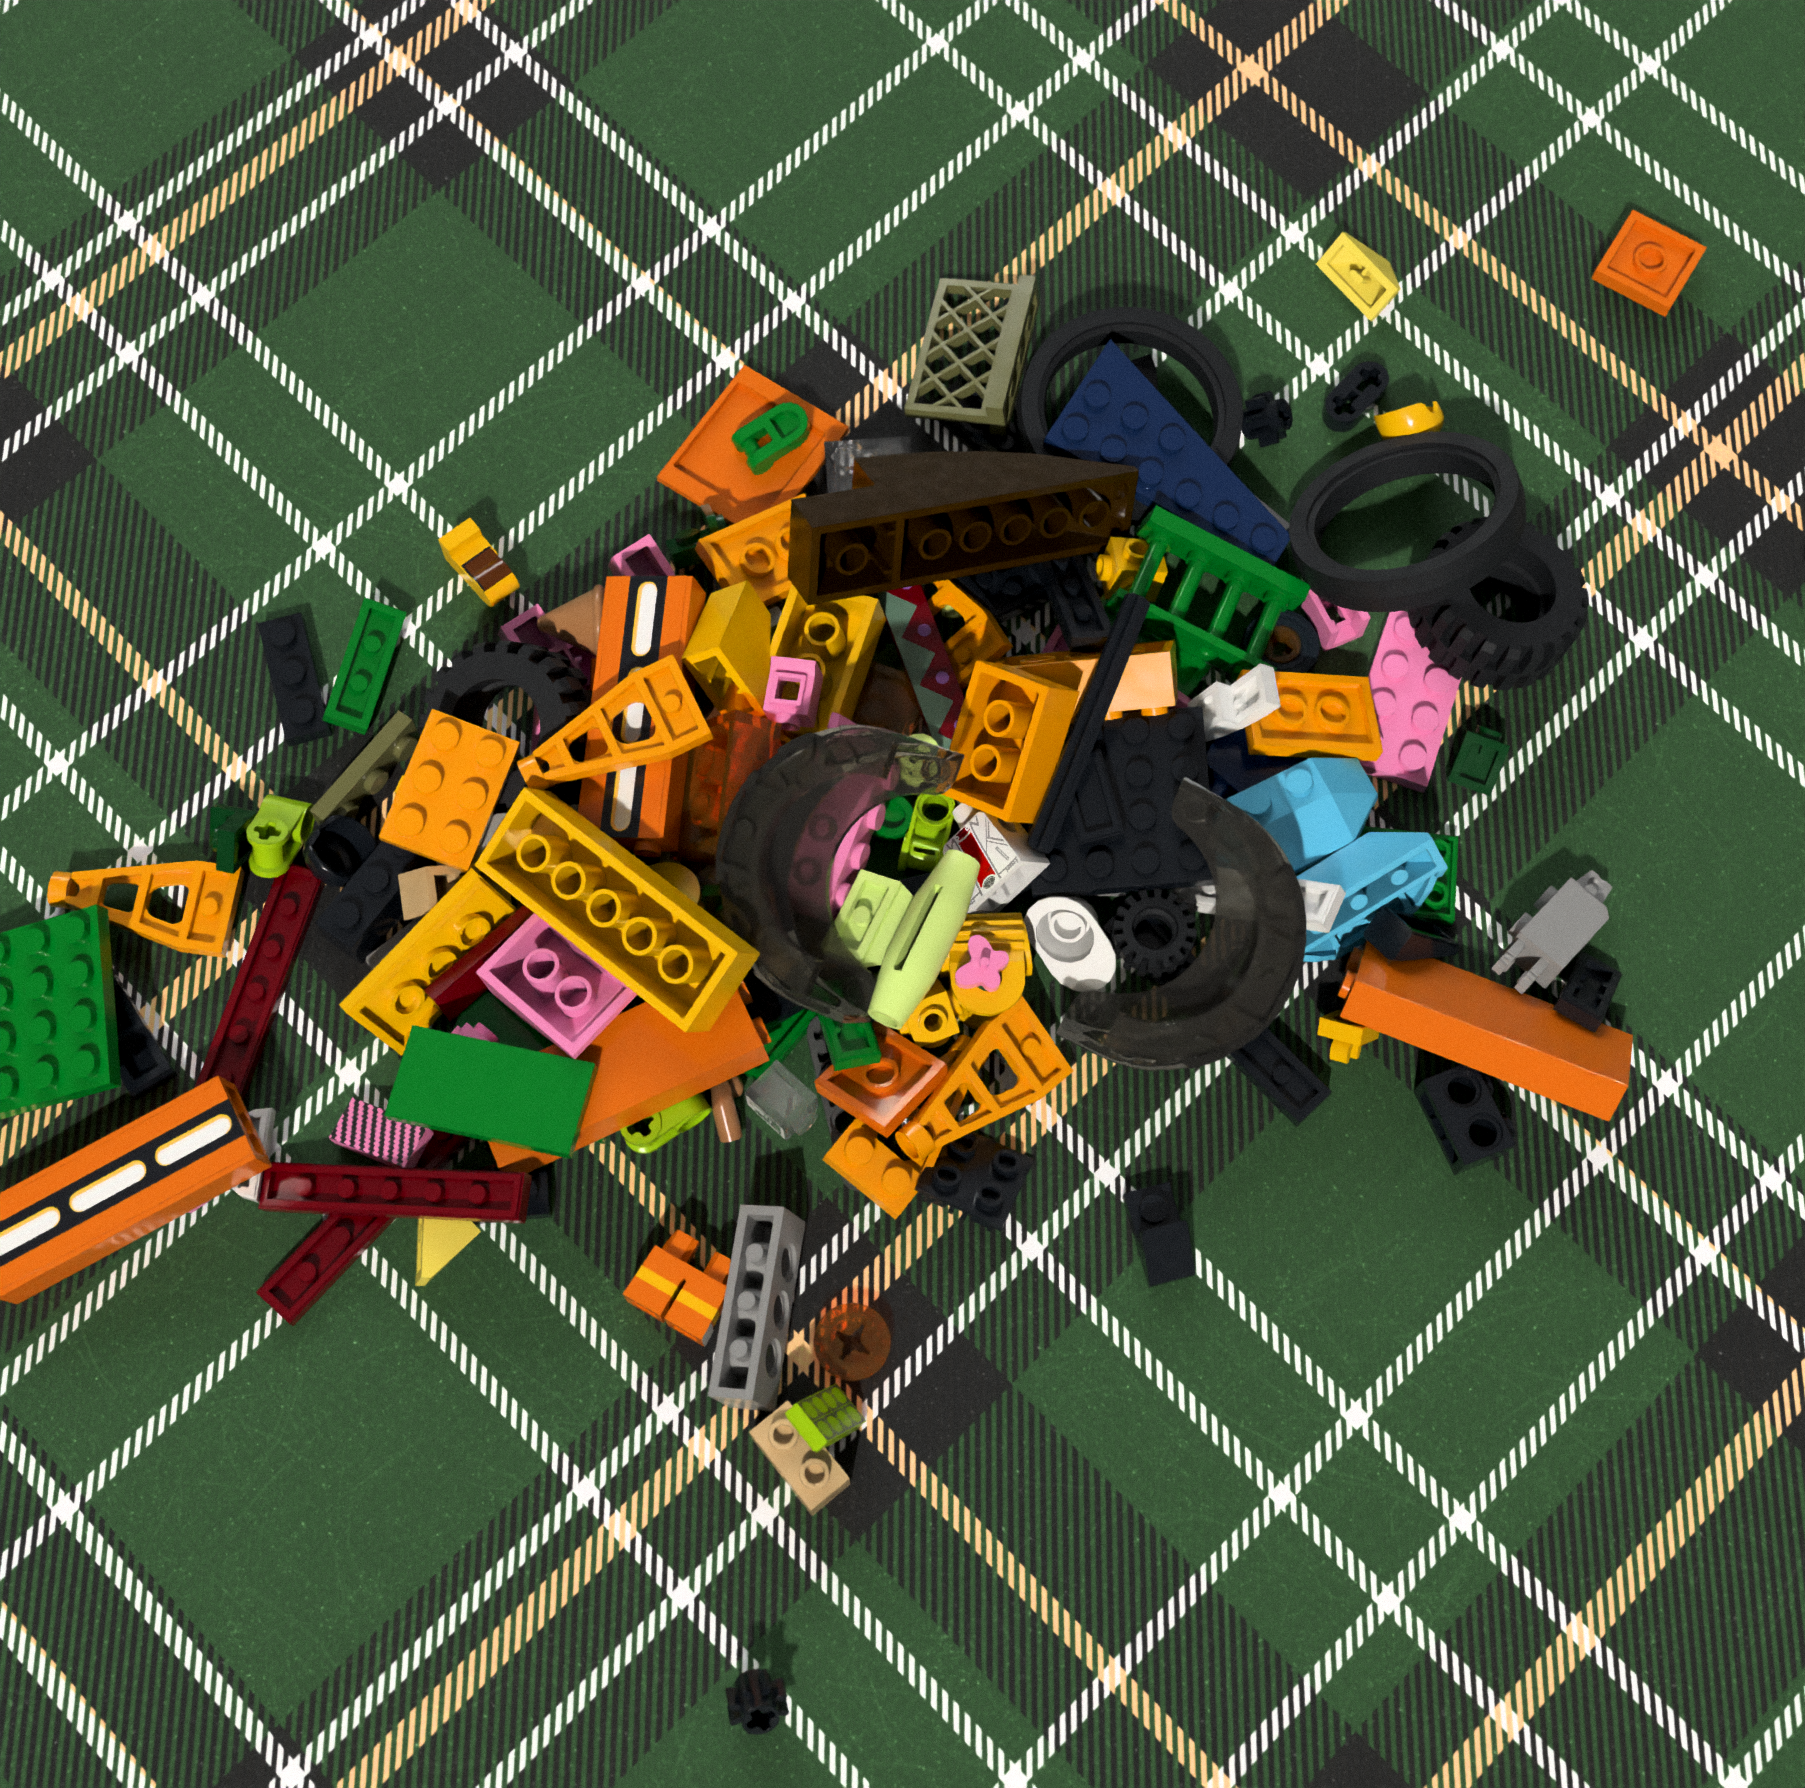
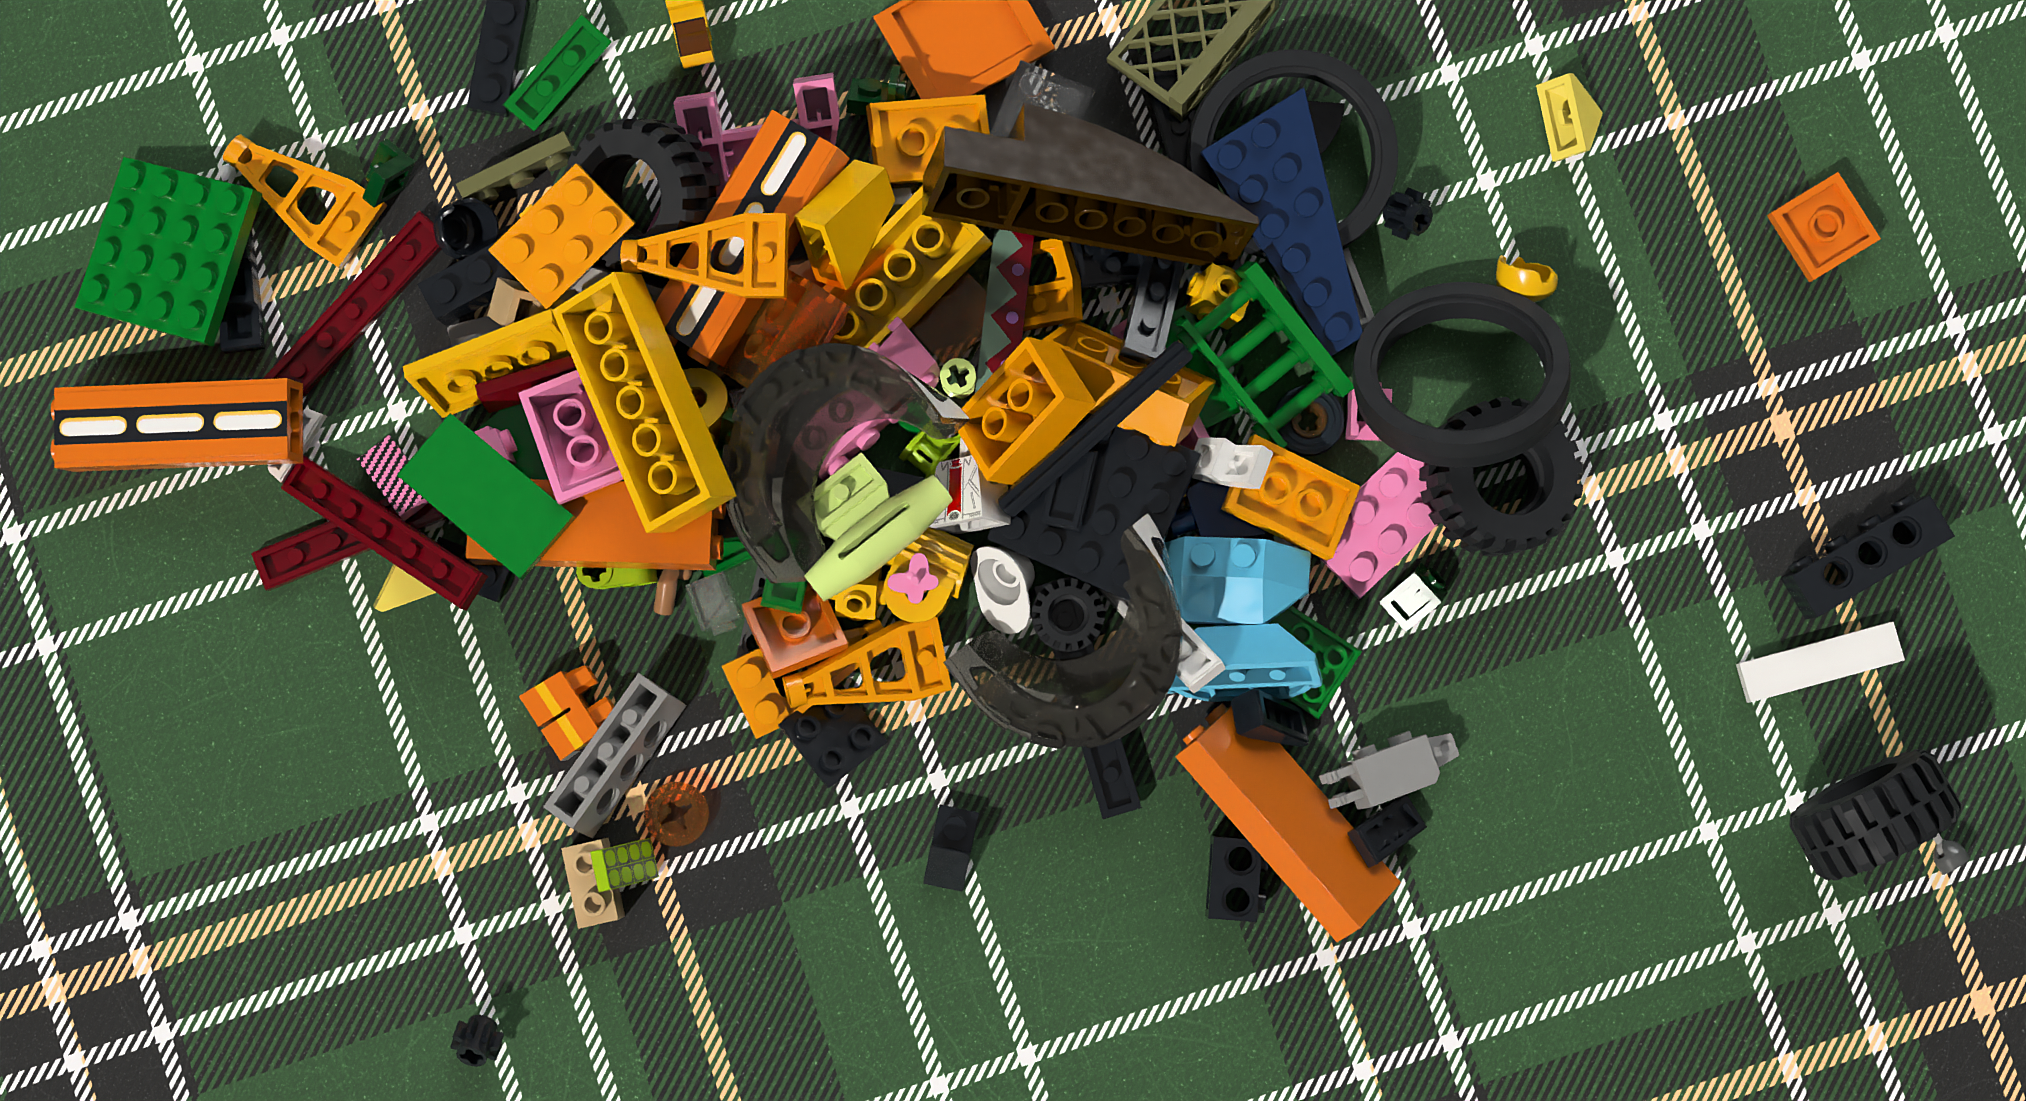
camera: 25 degrees right, 15 degrees up
(278, 834) = (424, 189): lime piece -> none
(576, 620) = (736, 128): medium nougat hat -> none
(786, 427) = (999, 27): green plate -> none
(790, 712) = (884, 294): bright pink window -> none
(1346, 1036) = (1173, 770): yellow tile -> none
(1349, 391) = (1495, 218): black beam -> none

